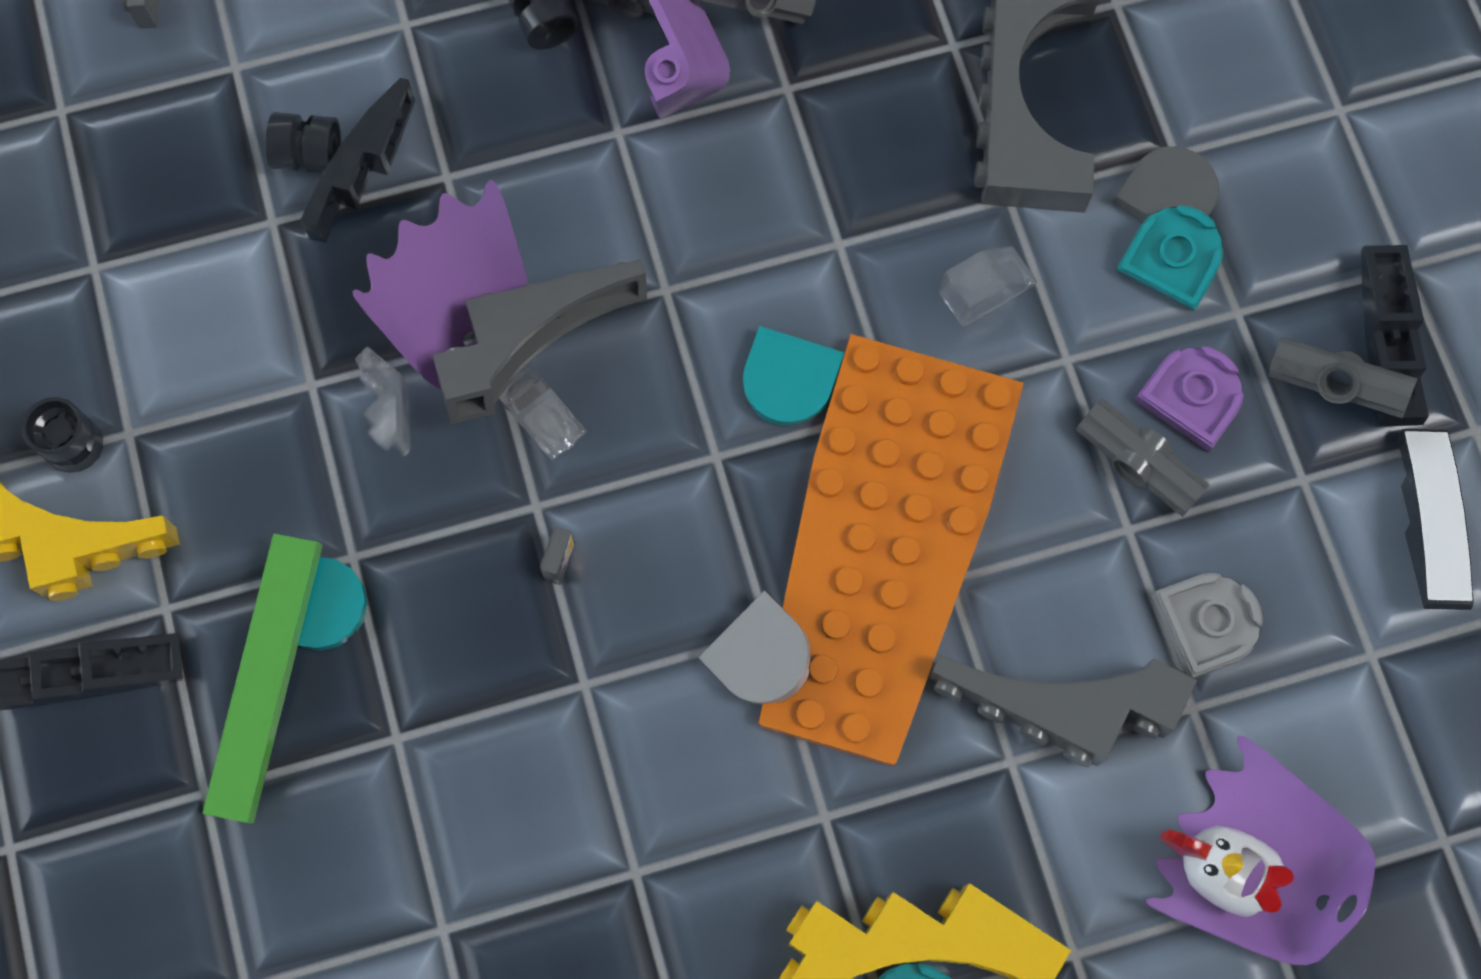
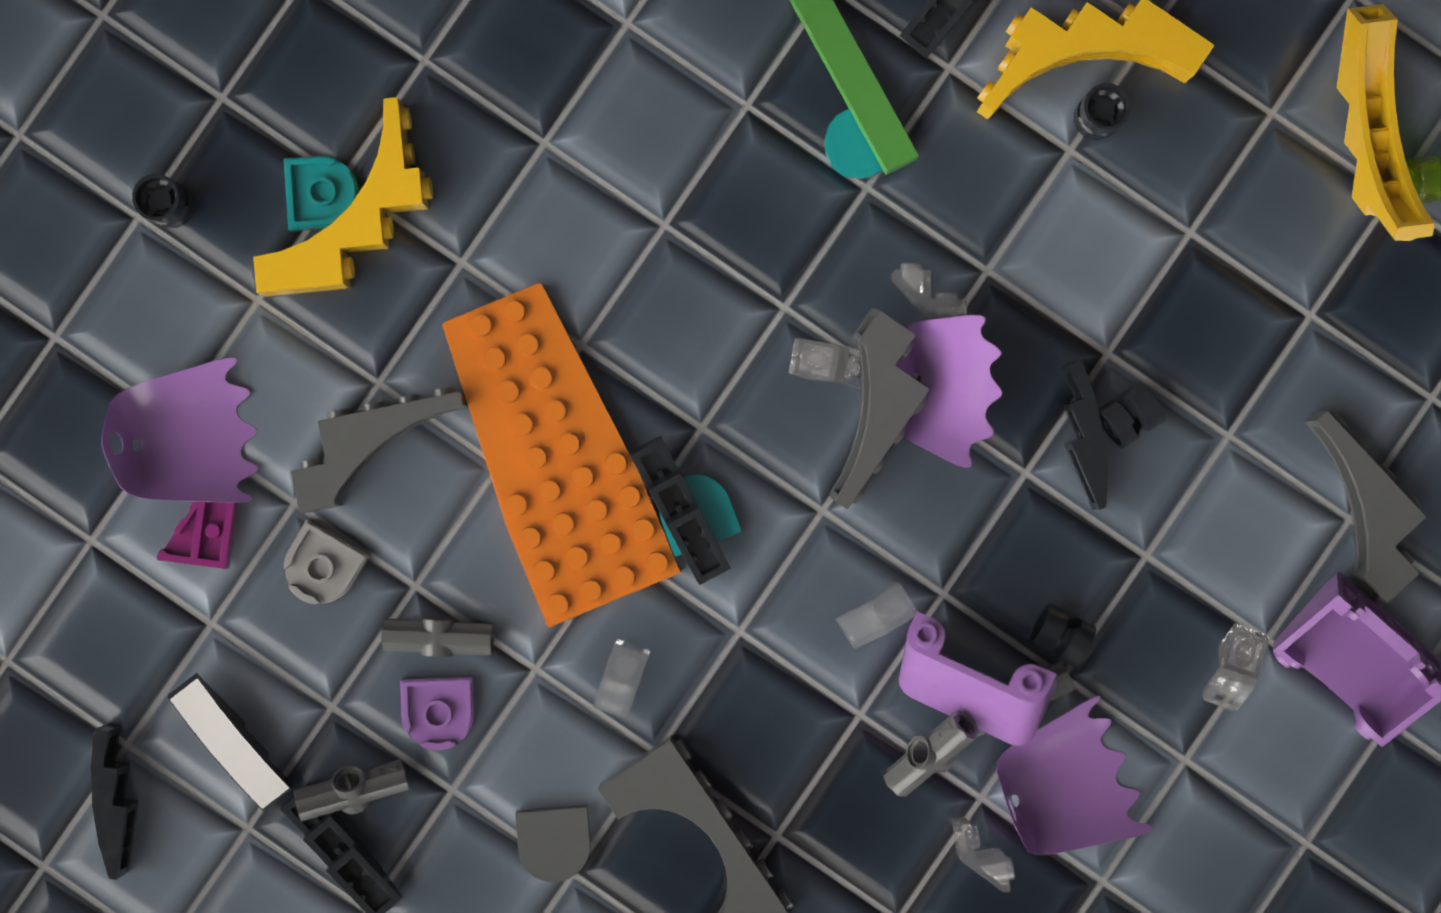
camera: 140 degrees right, 15 degrees up
(557, 555) = (742, 284): dark grey tile -> none
(694, 152) = (877, 615): none -> clear slope
(761, 654) = (571, 323): light grey tile -> none
(802, 387) = (679, 510): none -> black slope
(1175, 254) = (518, 795): teal tile -> none
(1220, 863) = (209, 413): white piece -> none
(1321, 743) = (203, 536): none -> magenta wing

